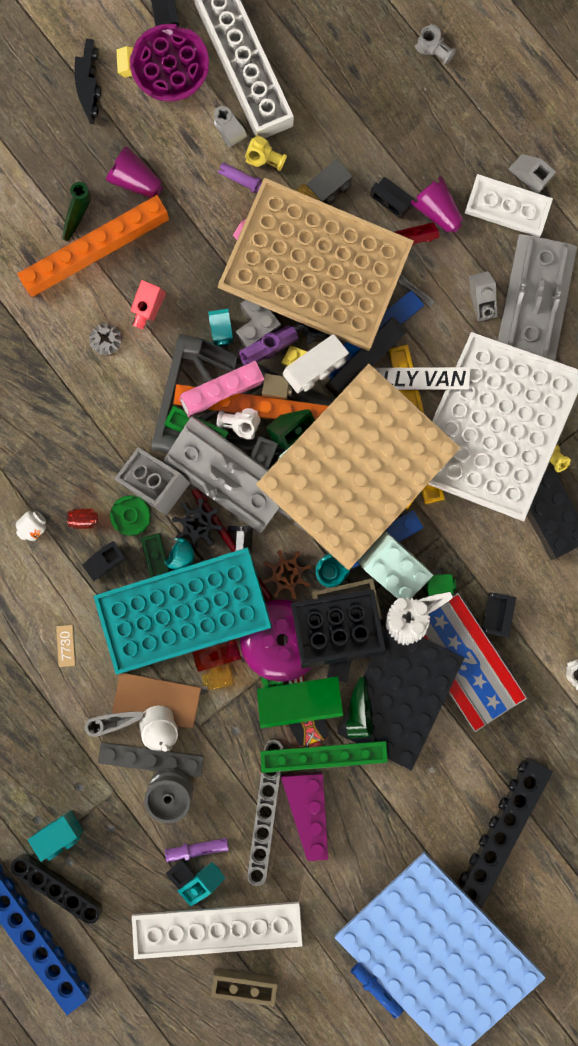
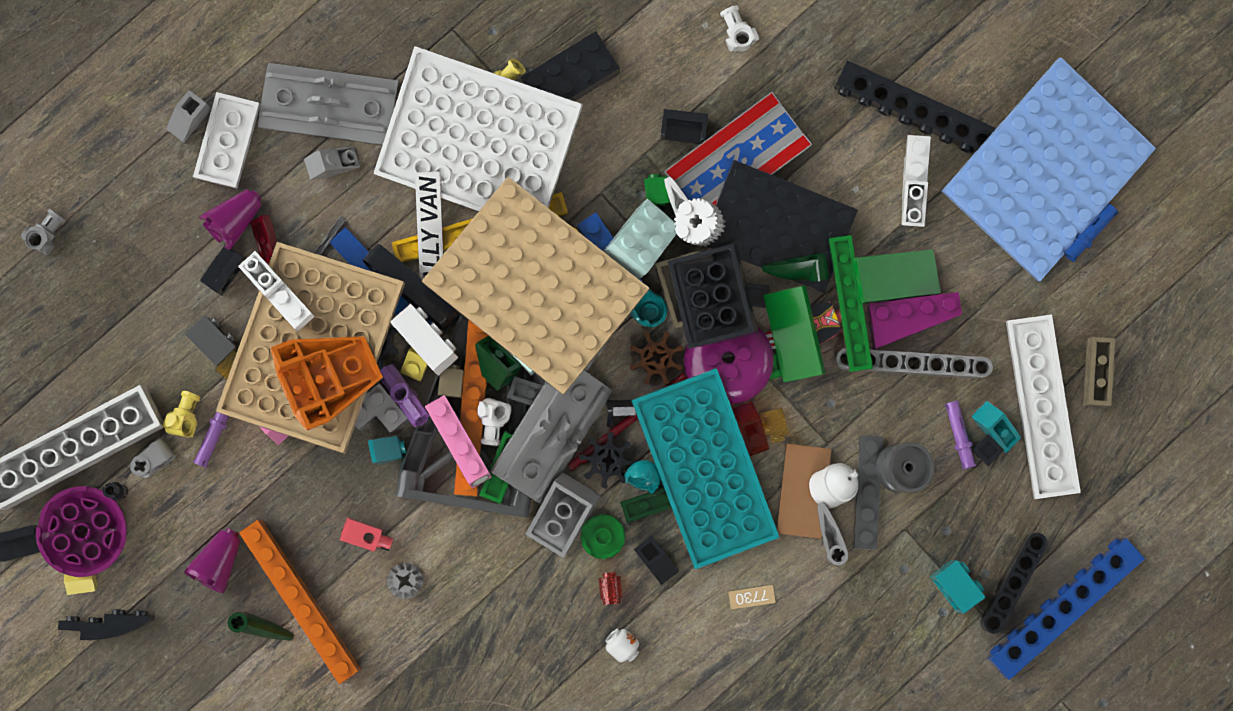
camera: 80 degrees left, 0 degrees up
(202, 92) = (115, 491): none -> black pin
(287, 271) = (324, 375): none -> orange wedge
(347, 802) = (896, 276): none -> green tile
(368, 235) = (276, 291): none -> white slope
(436, 826) = (915, 180): none -> white slope

